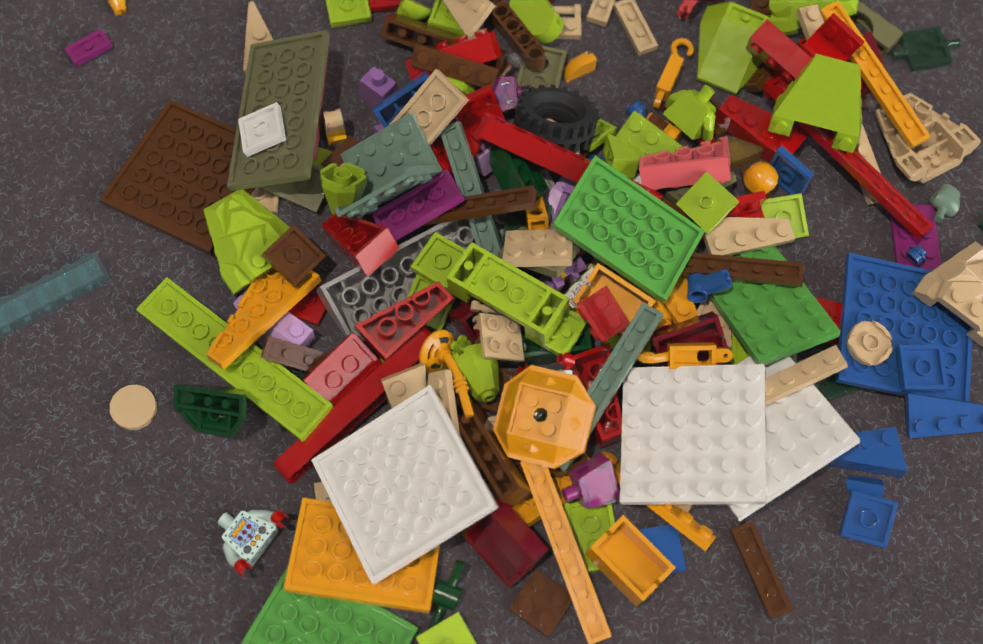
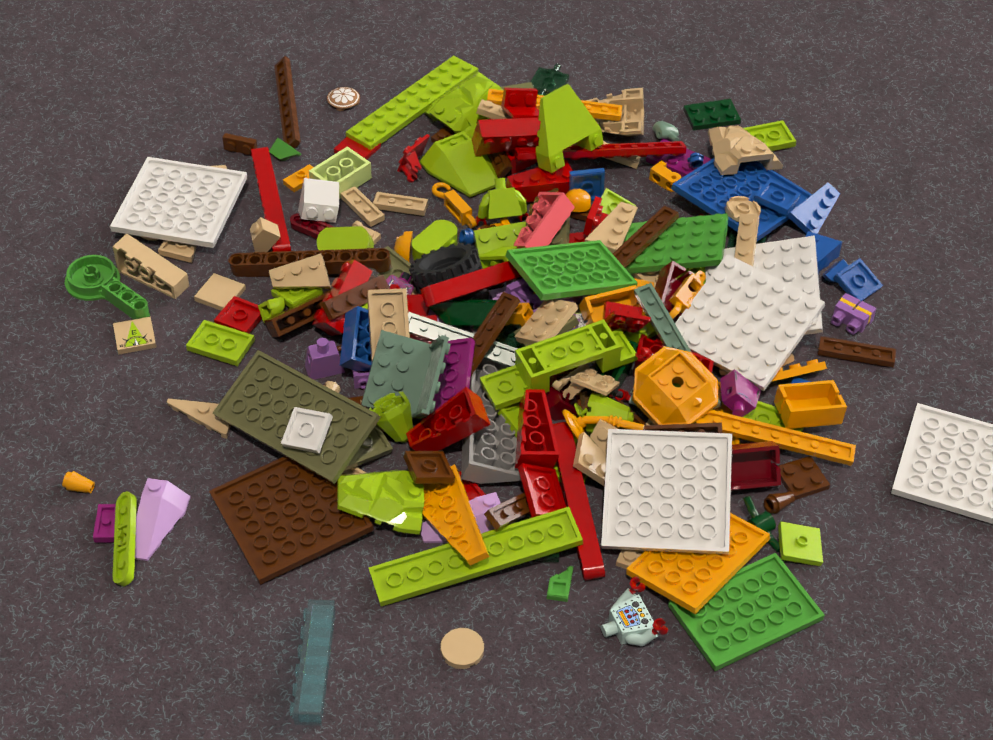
camera: 55 degrees left, 20 degrees down
(64, 80) = (124, 539): none -> lime piece
(121, 77) = (157, 514): none -> lavender wedge
(211, 408) = (512, 585): dark green wedge -> none
(257, 449) = (560, 585): none -> bright green tile
(490, 596) = (776, 502): none -> reddish brown cone
(606, 86) = (436, 235): none -> lime brick
(702, 285) = (638, 264): blue piece -> none
(707, 202) = (581, 225): lime plate -> none
(814, 537) = (853, 314): none -> medium lavender hips
(872, 238) = (663, 176): none -> light orange leg

